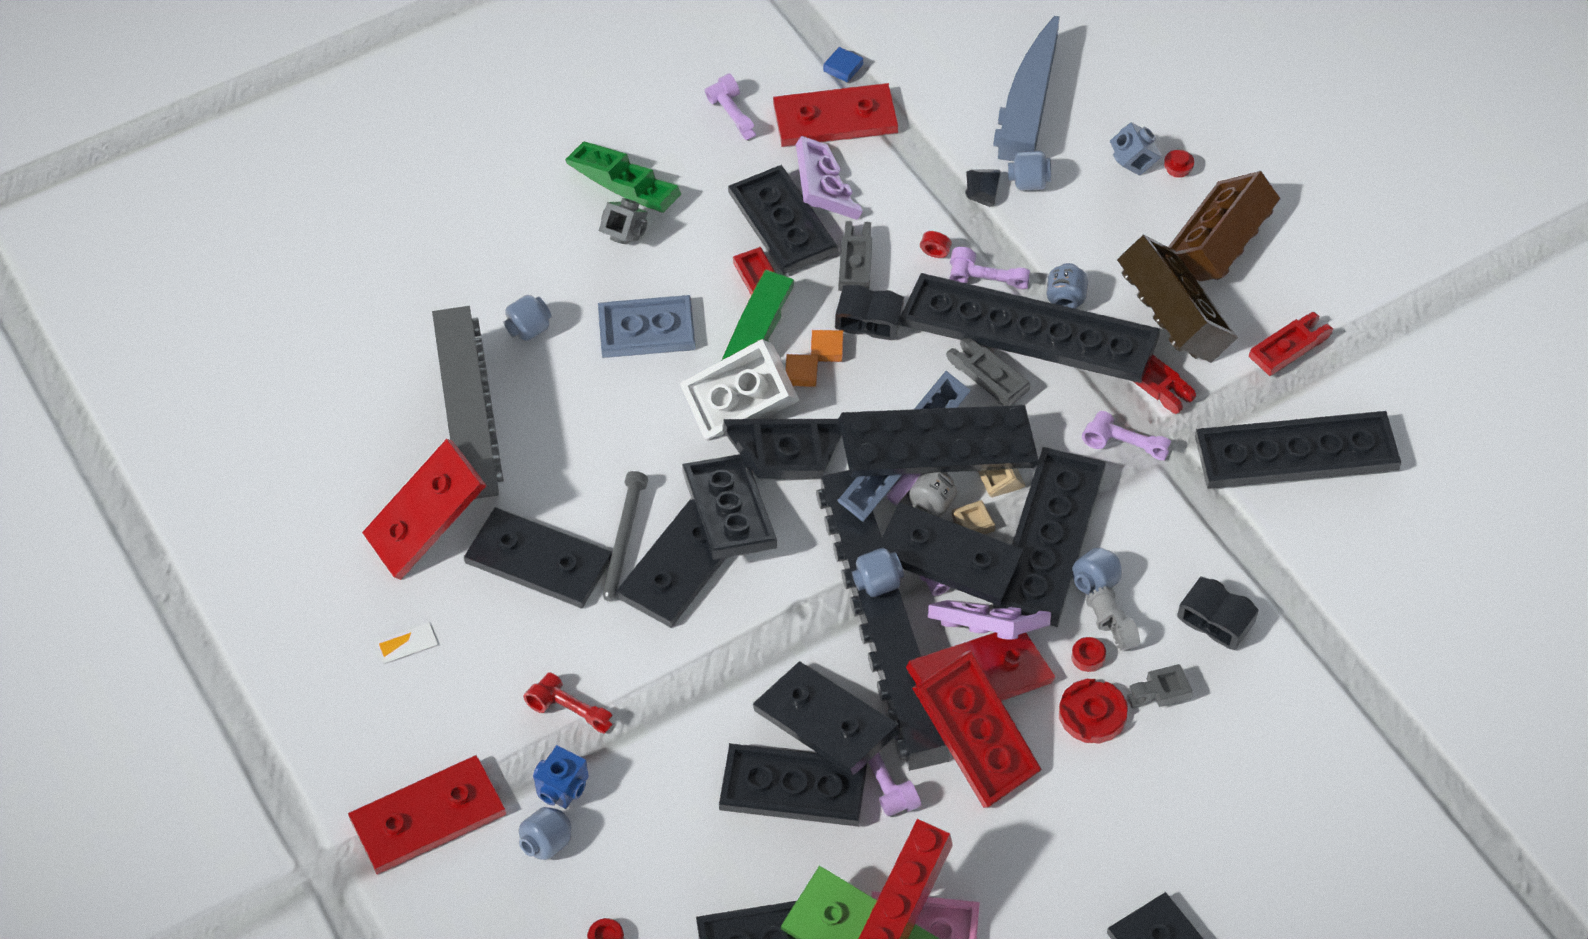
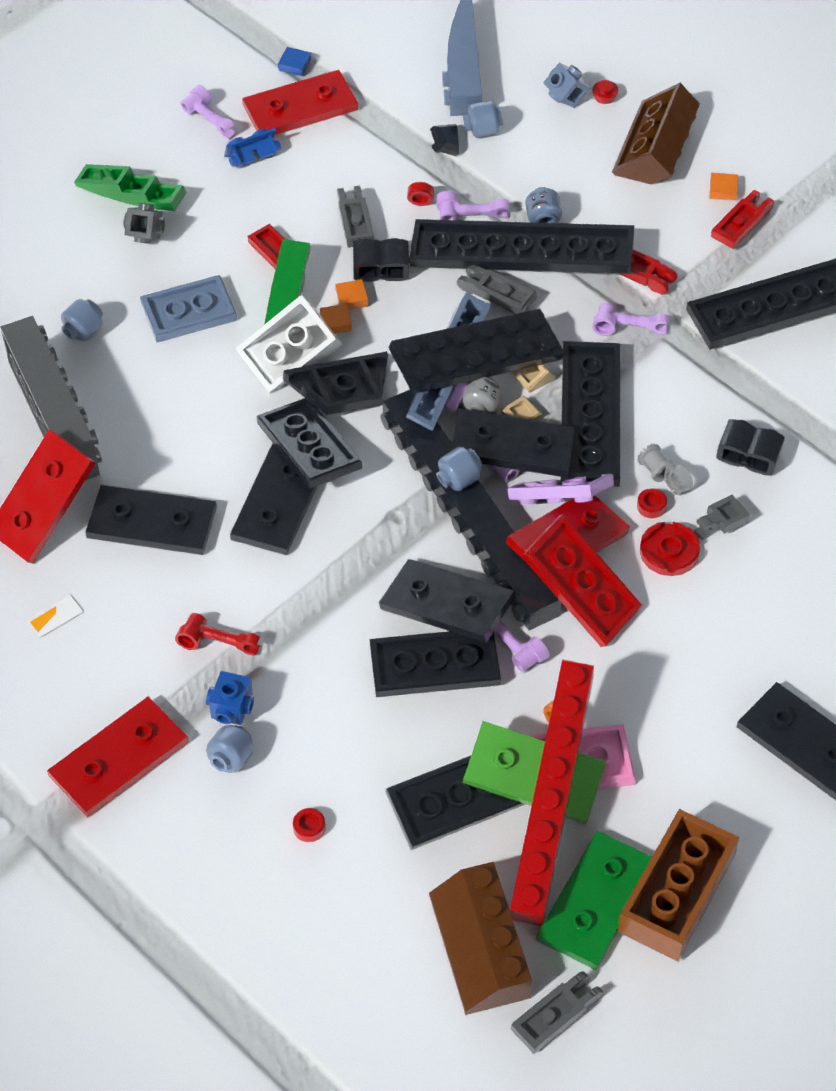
camera: 15 degrees left, 0 degrees up
(635, 482) = (219, 439): dark grey bar -> none
(755, 155) = (240, 150): none -> blue hinge
(782, 219) = (281, 197): black plate -> none
(821, 180) = (306, 160): lavender wing -> none
(1096, 570) = (639, 432): sand blue head -> none
(1176, 299) = (640, 200): dark brown brick -> none
(1280, 300) = (723, 186): none -> orange tile

